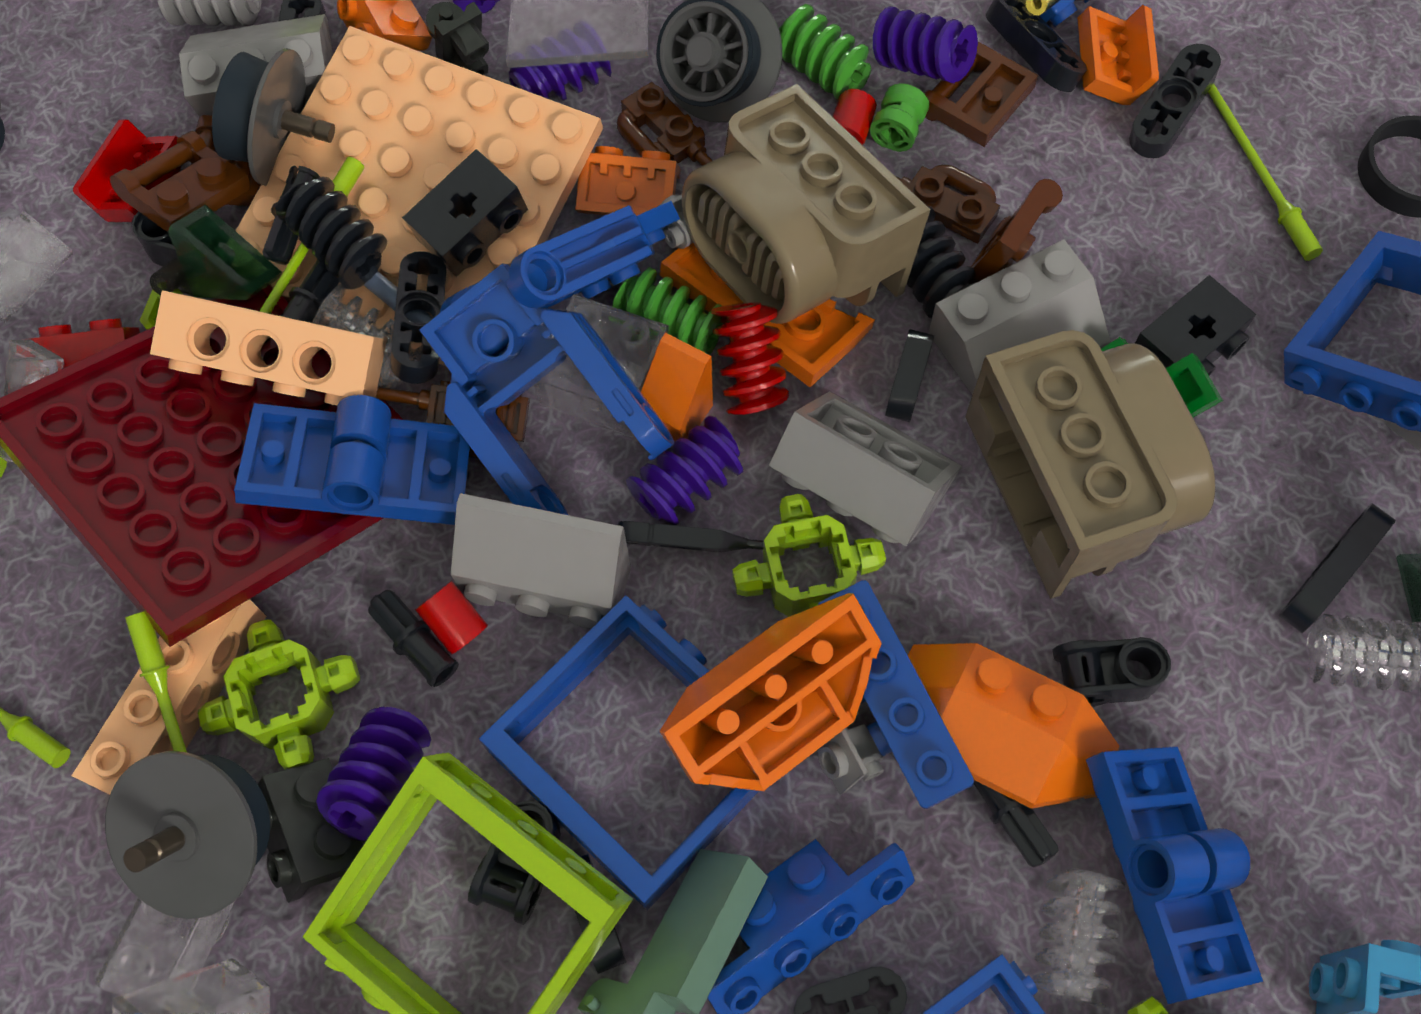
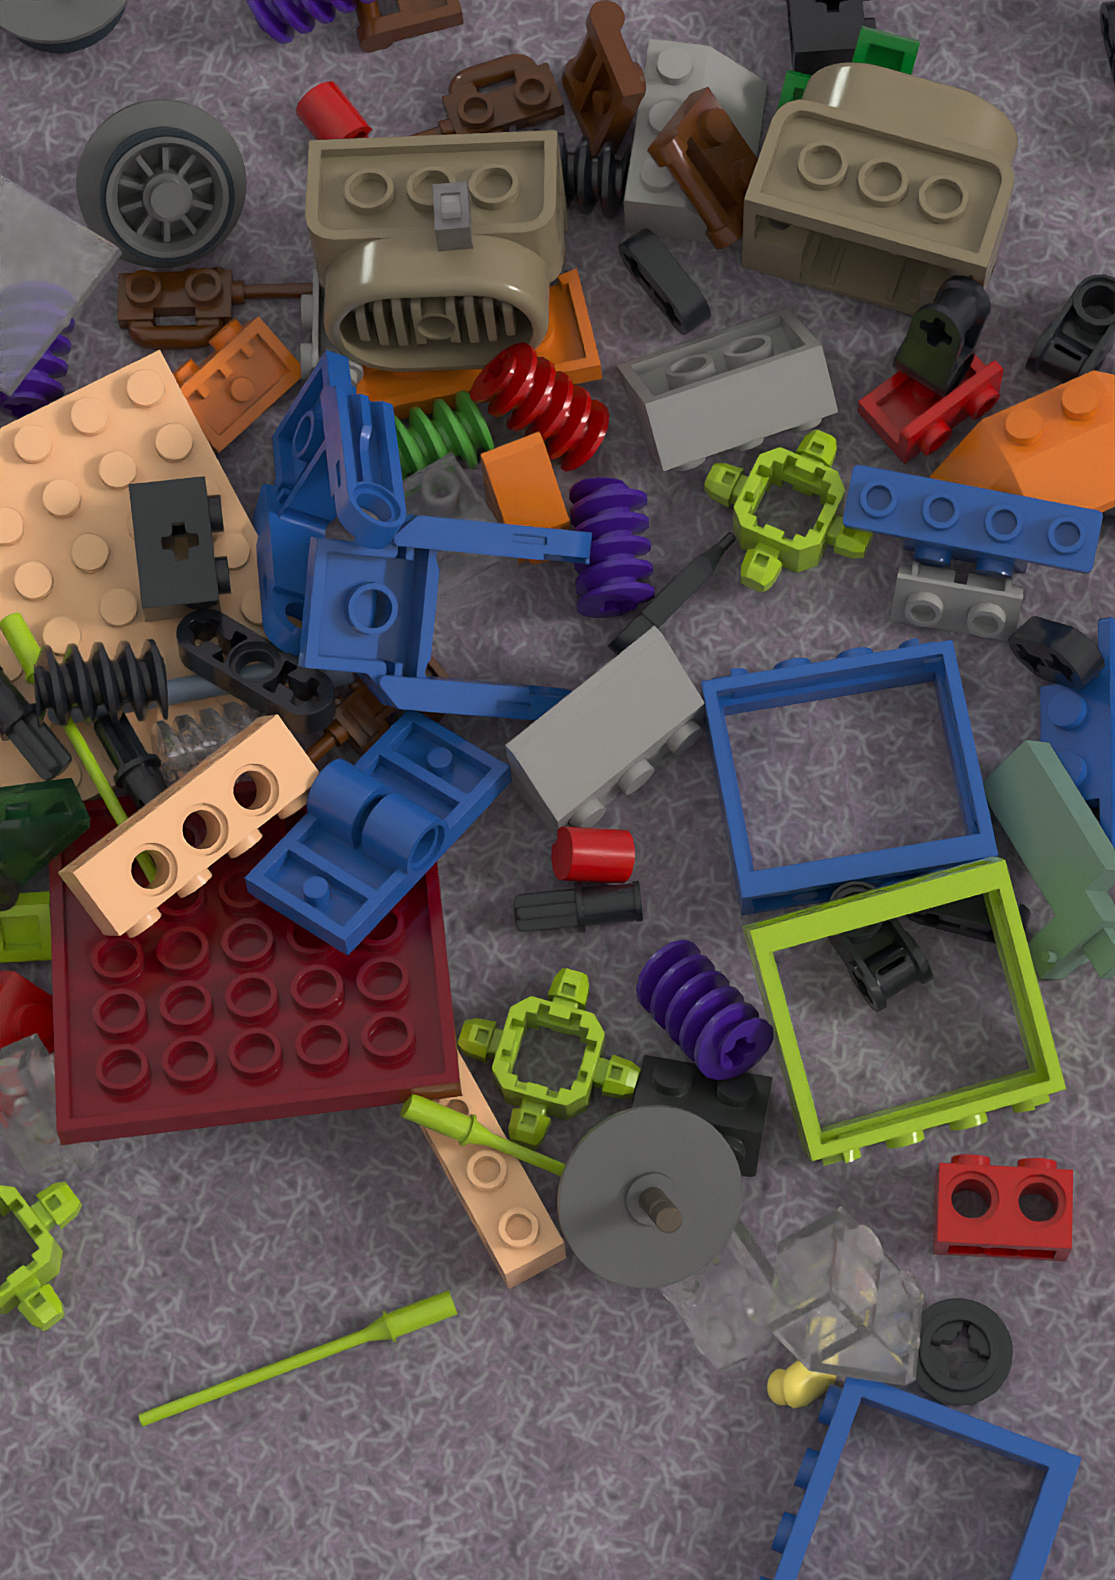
camera: 50 degrees left, 5 degrees up
(775, 698) = (907, 608): orange wedge -> none
(804, 183) = (452, 216): none -> flat silver piece
(823, 53) = (235, 84): bright green piece -> none
(843, 831) = (1056, 652): none -> black beam
(897, 125) = (373, 79): bright green wheel -> none
(974, 602) = (919, 420): none -> red bracket
(1015, 570) = (944, 336): none -> black piece
(1022, 317) = (708, 164): none -> reddish brown plate

